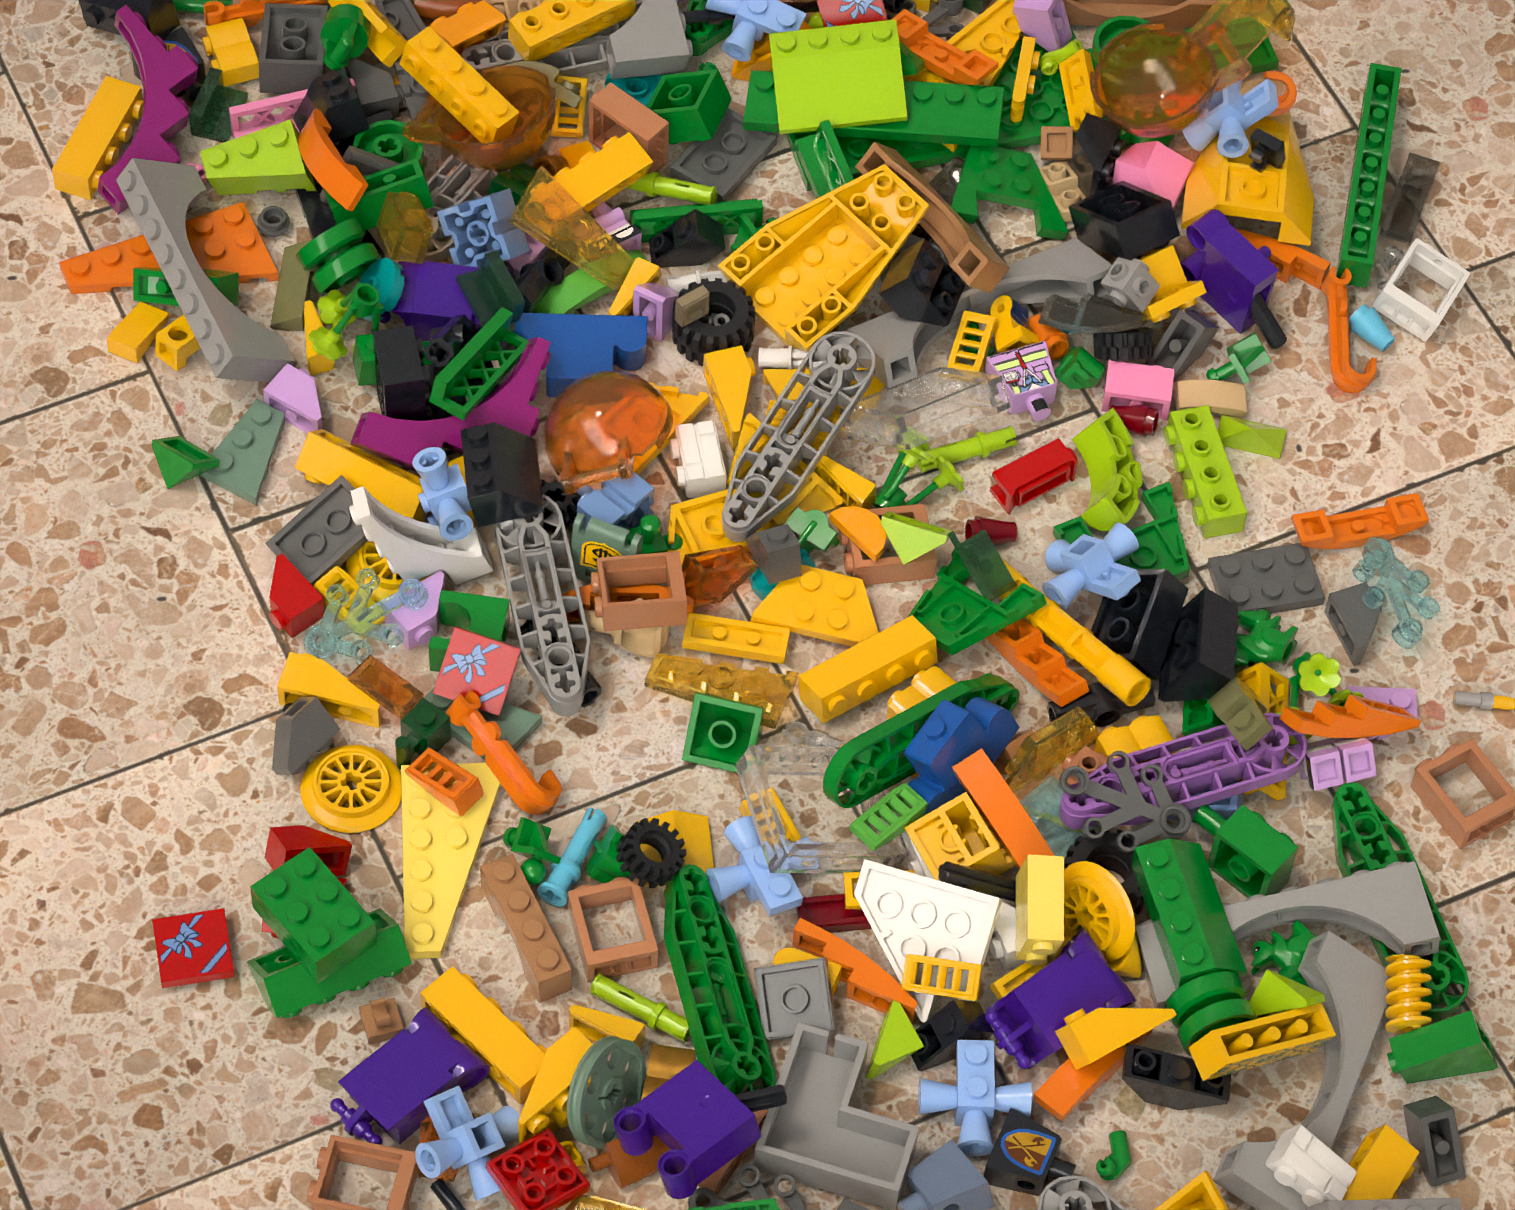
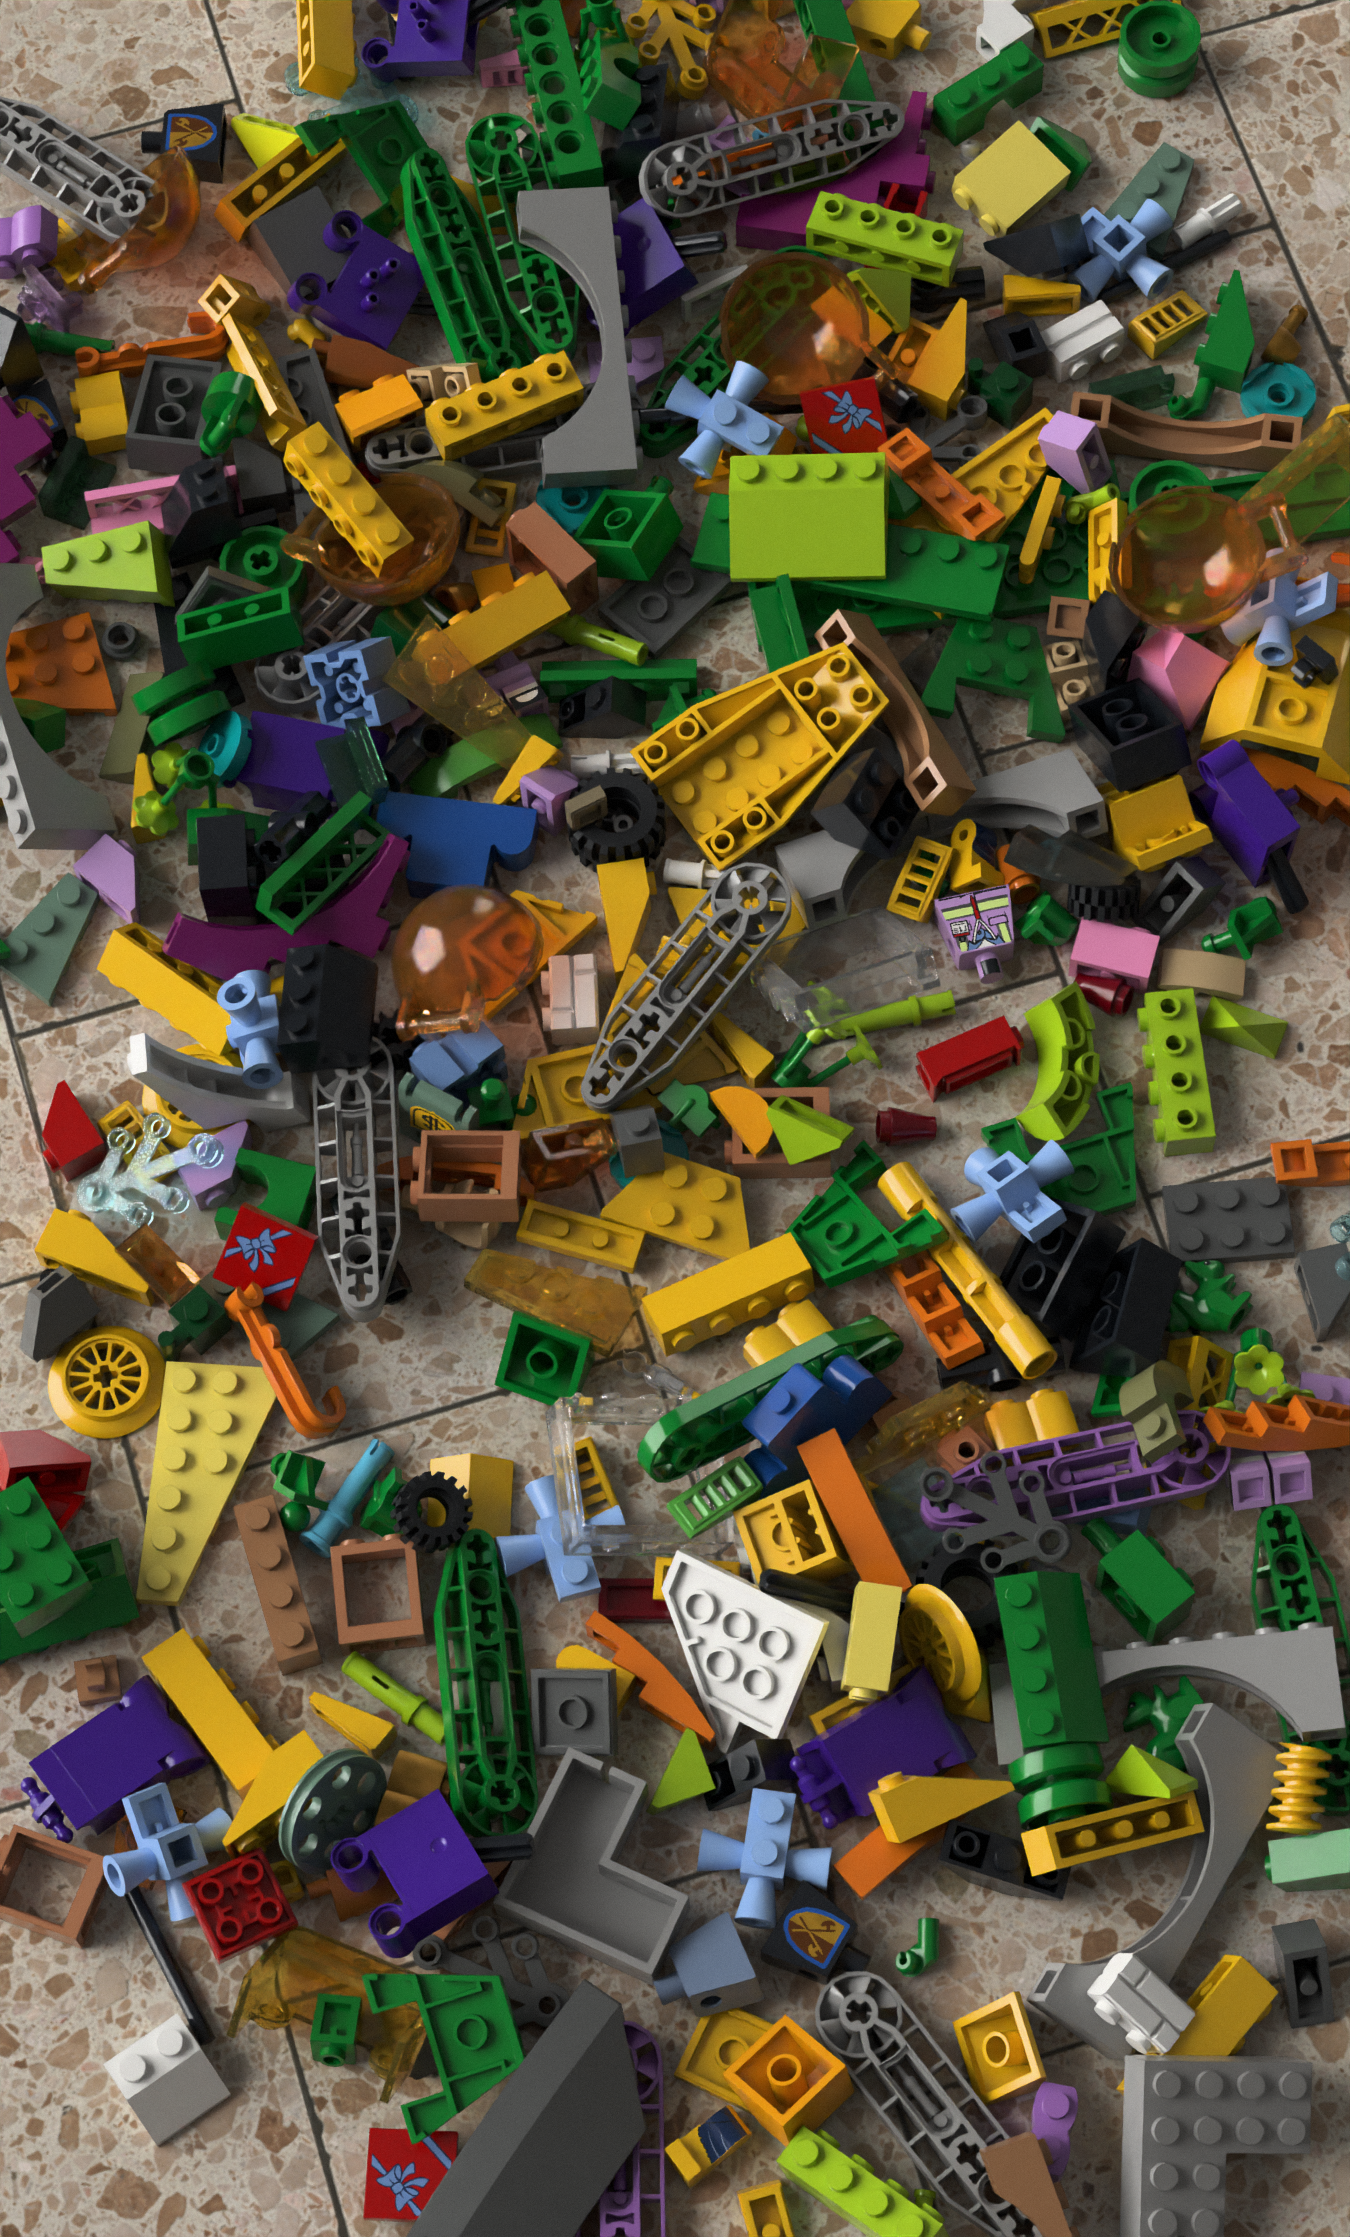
camera: 15 degrees right, 10 degrees up
(321, 533) = (97, 1062): dark grey plate -> none
(327, 166) = (188, 609): orange slope -> none
(404, 227) = (263, 674): clear yellow brick -> none
(459, 796) = (225, 1410): orange slope -> none
(911, 970) = (712, 1696): yellow slope -> none
(984, 564) = (883, 1177): clear green panel -> none
(1130, 284) = (1110, 823): light grey brick -> none

